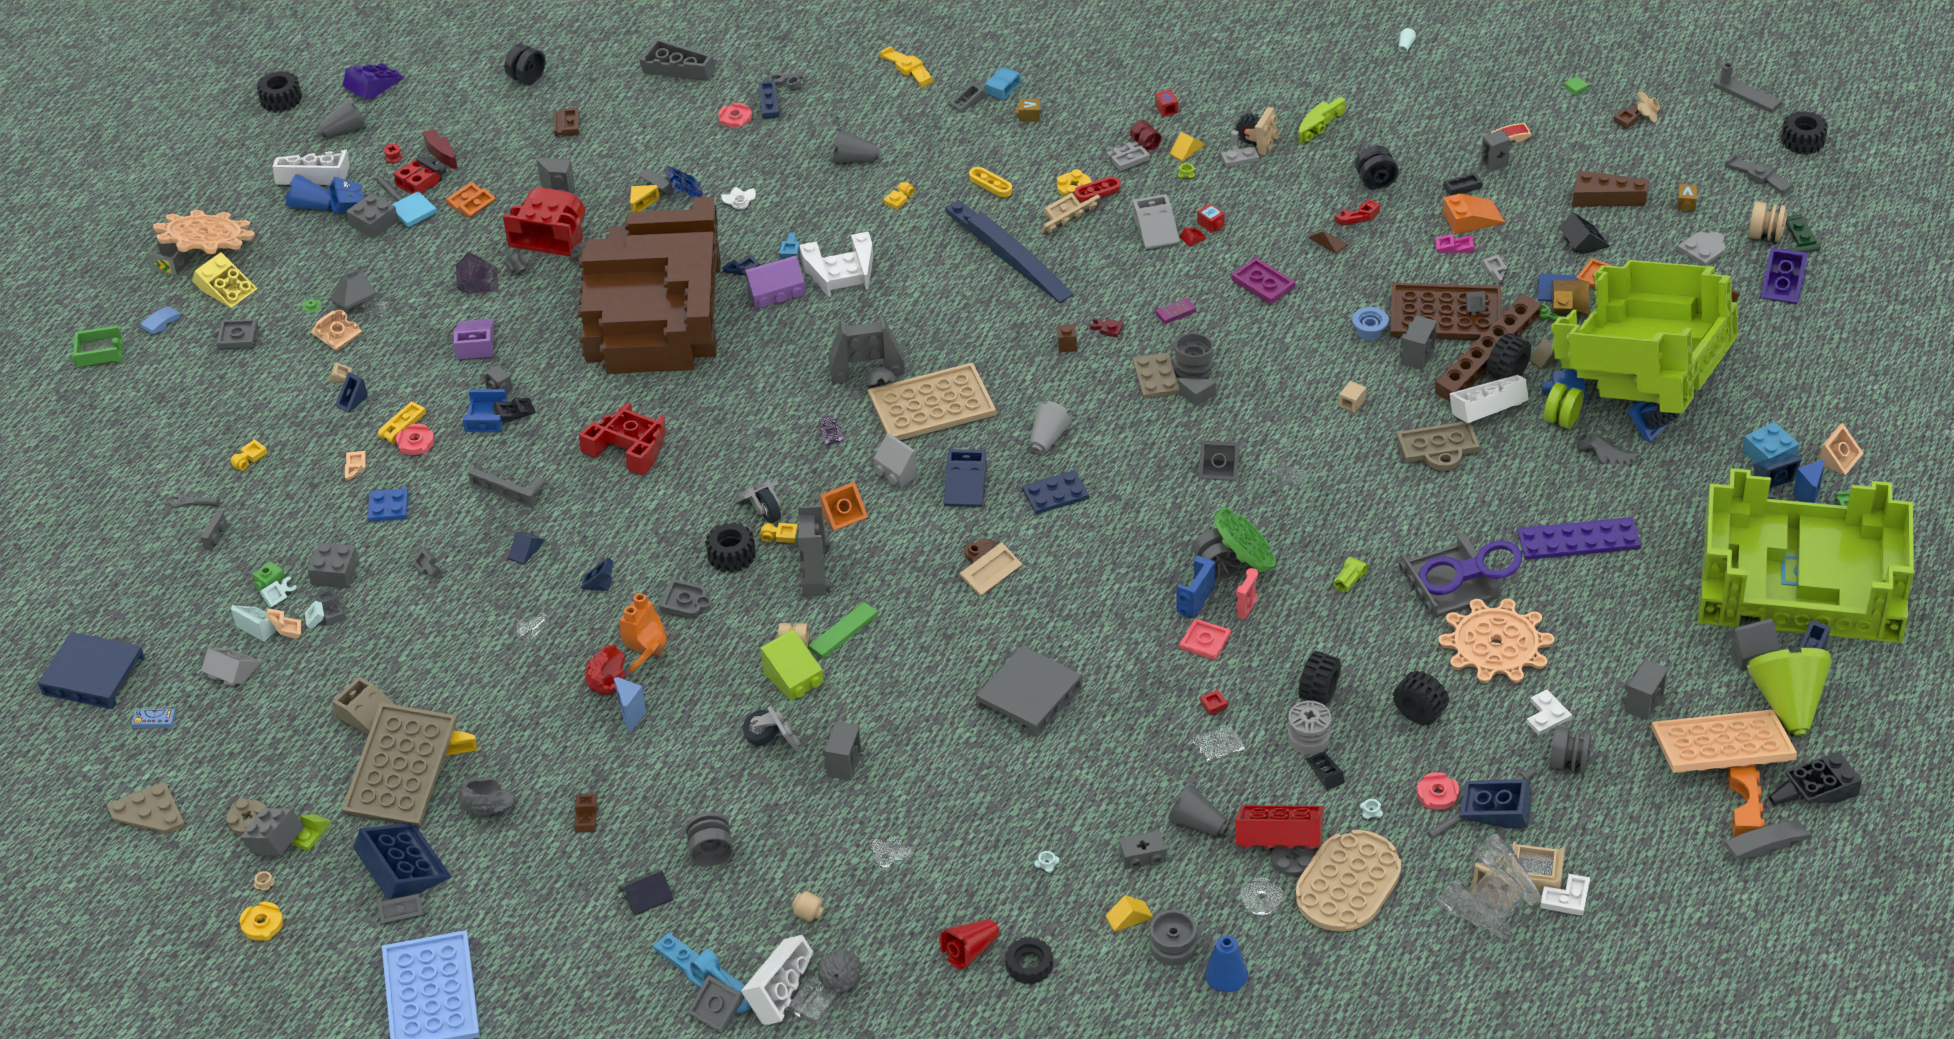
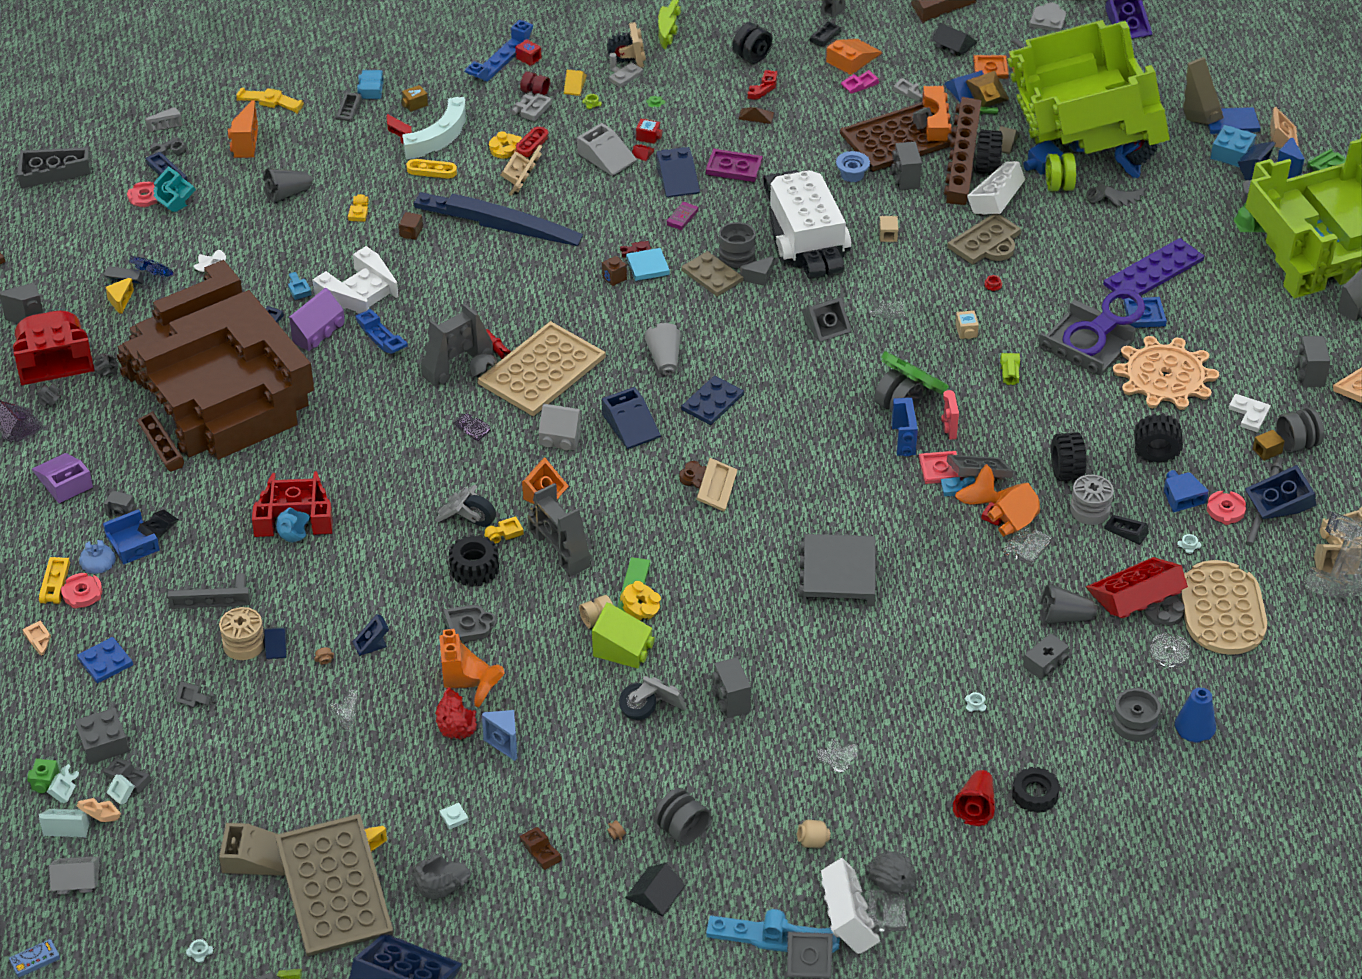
camera: 35 degrees left, 0 degrees up
(270, 765) = (195, 947): none -> light aqua plate
(447, 417) = (96, 558): none -> medium blue hair
(498, 527) = (242, 633): none -> tan wheel
(542, 754) = (454, 816): none -> light aqua plate
(551, 575) = (324, 655): none -> medium nougat plate
(570, 341) = (161, 441): none -> reddish brown brick
(612, 453) = (292, 524): none -> dark azure cap
(655, 826) = (616, 830): none -> medium nougat plate
(754, 120) = (172, 190): none -> teal brick
(809, 50) = (172, 115): none -> light grey slope
(823, 314) = (382, 337): none -> blue slope
(833, 652) = (644, 593): none -> yellow plate
(856, 88) = (244, 132): none -> orange slope
(910, 363) = (498, 347): none -> red pin
(927, 228) = (410, 225): none -> reddish brown brick
(995, 135) = (398, 127): none -> red piece
(1023, 151) = (438, 134): none -> light aqua brick
(1104, 344) = (647, 264): none -> medium azure tile
(1127, 913) = (1078, 715): yellow slope -> none
(1172, 80) = (519, 32): none -> blue slope
(1202, 661) = (953, 485): none -> dark azure plate
(1204, 267) = (677, 172): none -> dark blue slope
(1227, 701) = (1014, 505): none -> orange hips
(1233, 652) = (972, 466): none -> dark grey plate
(1246, 192) = (655, 101): none -> bright green plant
(1272, 361) = (806, 223): none -> white piece
(1344, 517) = (967, 324): none -> tan brick
(1407, 758) = (1184, 491): none -> blue torso
(1408, 488) = (993, 283): none -> red plate
(1502, 288) = (939, 124): none -> orange arch
(1531, 576) = (1153, 313): none -> blue plate
(1532, 751) = (1268, 445): none -> pearl gold brick
(1769, 381) = (1201, 99): none -> dark tan wedge
(1800, 421) = (1239, 118): none -> blue tile

